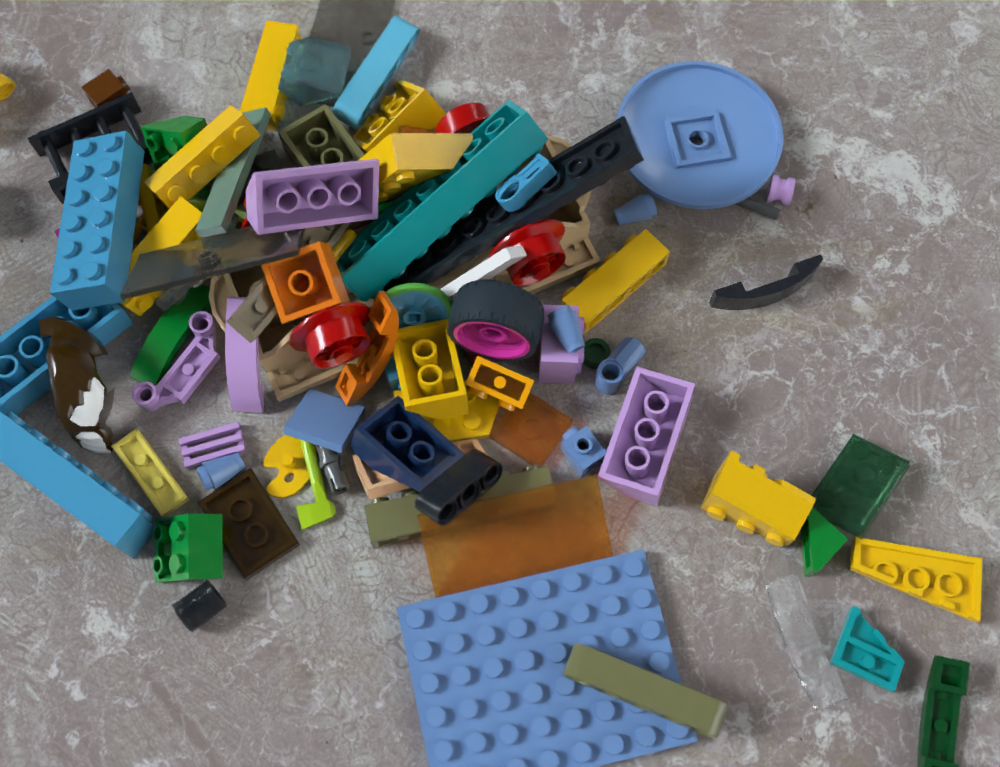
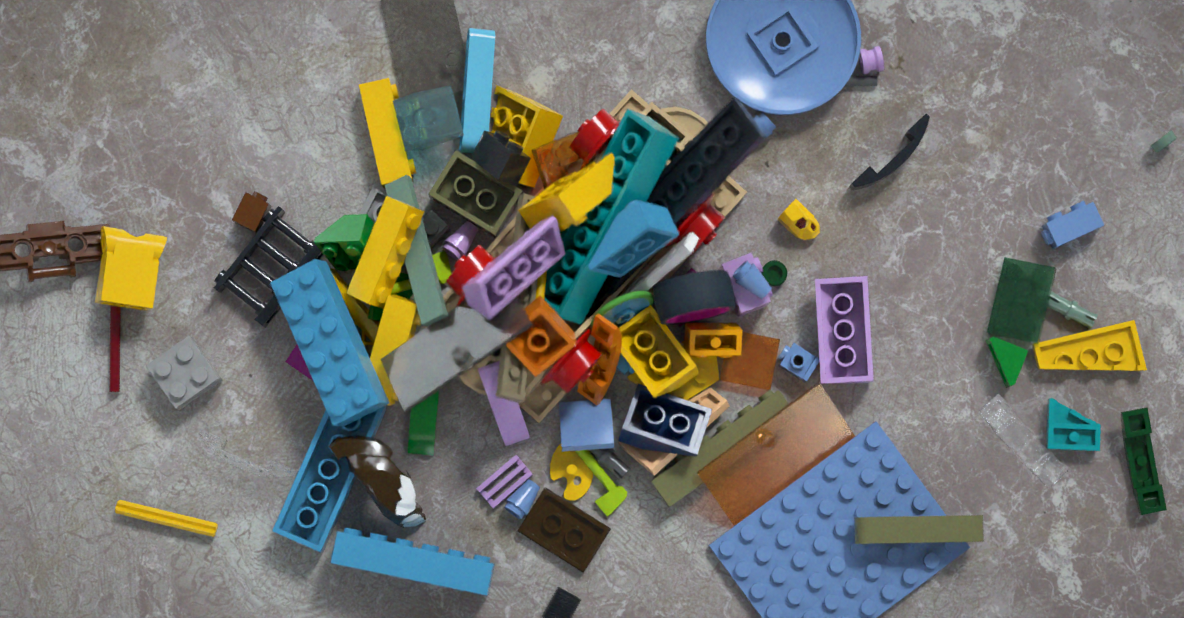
camera: 25 degrees left, 15 degrees up
(150, 473) = (466, 523): light yellow tile -> none
(187, 371) = (454, 430): lavender plate -> none
(188, 548) = (531, 570): green slope -> none
(365, 122) = (501, 157): none -> black brick
(453, 223) = (633, 238): none -> dark azure slope
(458, 487) = (720, 438): black beam -> none
(526, 183) = (677, 176): dark azure piece -> none
(617, 278) = (765, 204): yellow brick -> none
(619, 364) = (799, 276): medium blue piece -> none
(643, 310) = (799, 221): none -> yellow rock
(756, 502) = (948, 353): yellow wedge -> none
(910, 521) = (1071, 310): none -> sand green pin
(941, 429) = (1068, 227): none -> medium blue brick

